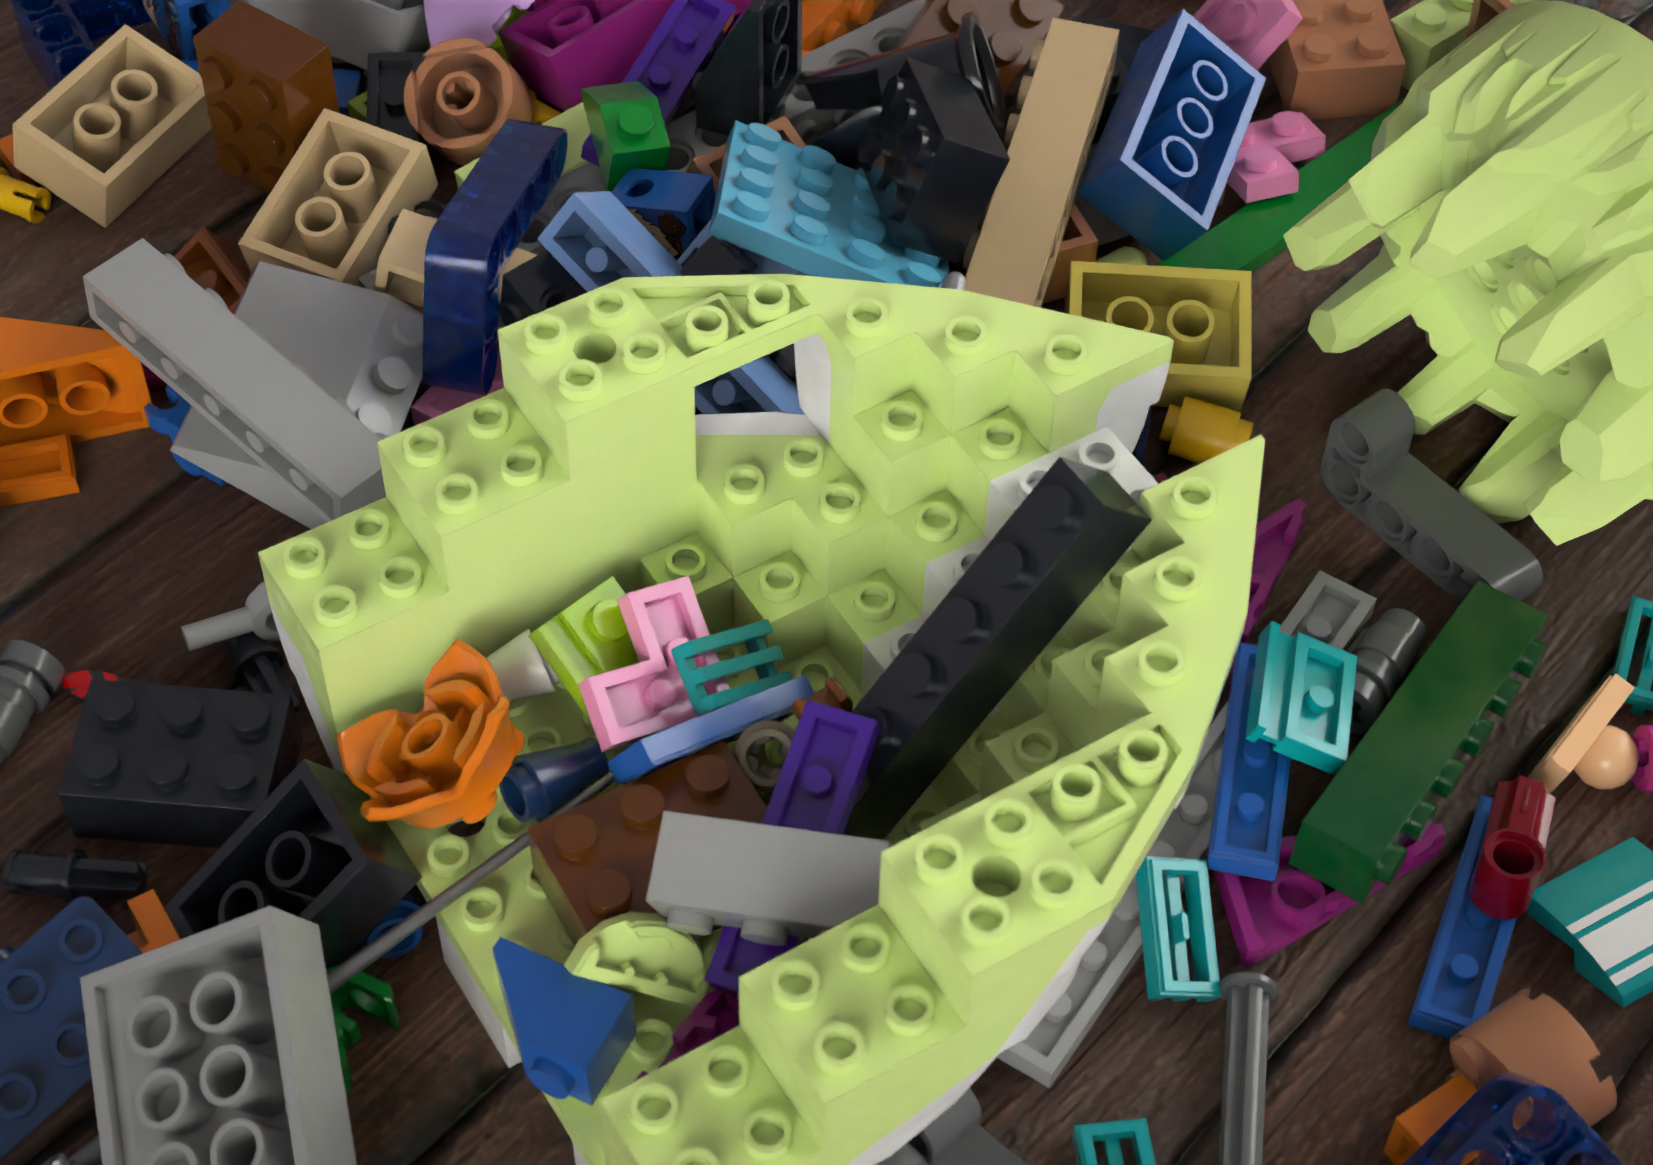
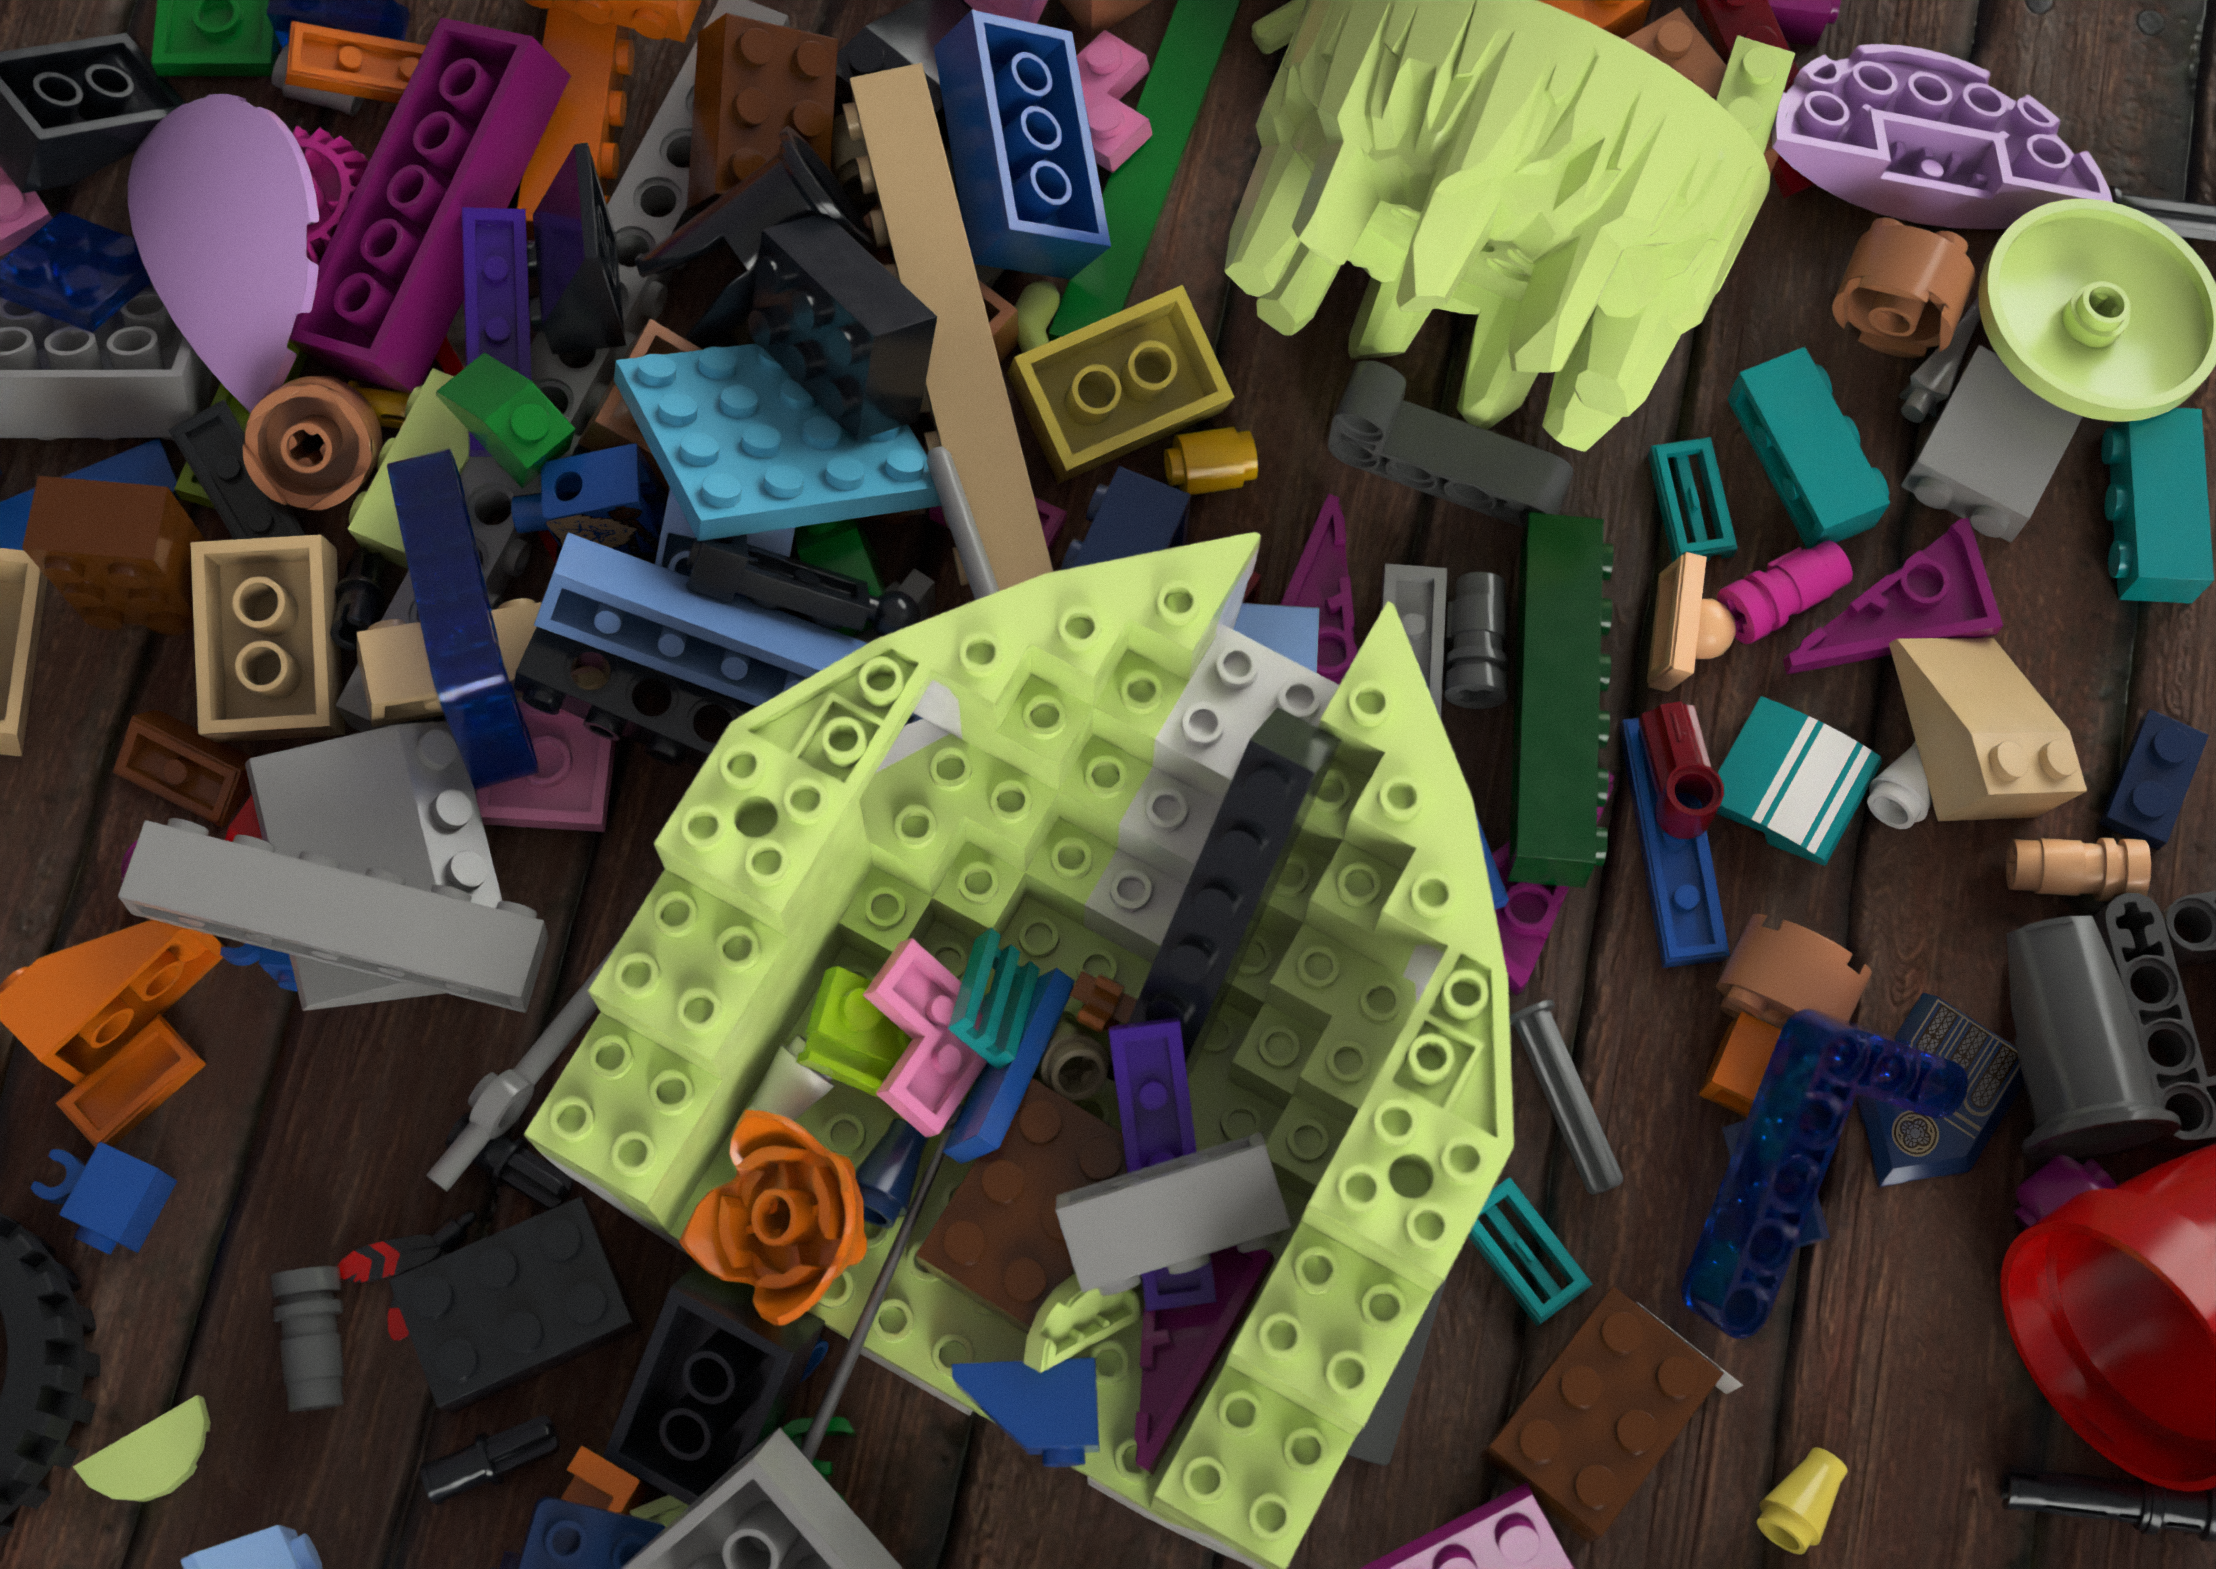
camera: 30 degrees left, 20 degrees up
(1302, 698) = (1470, 721): teal plate -> none

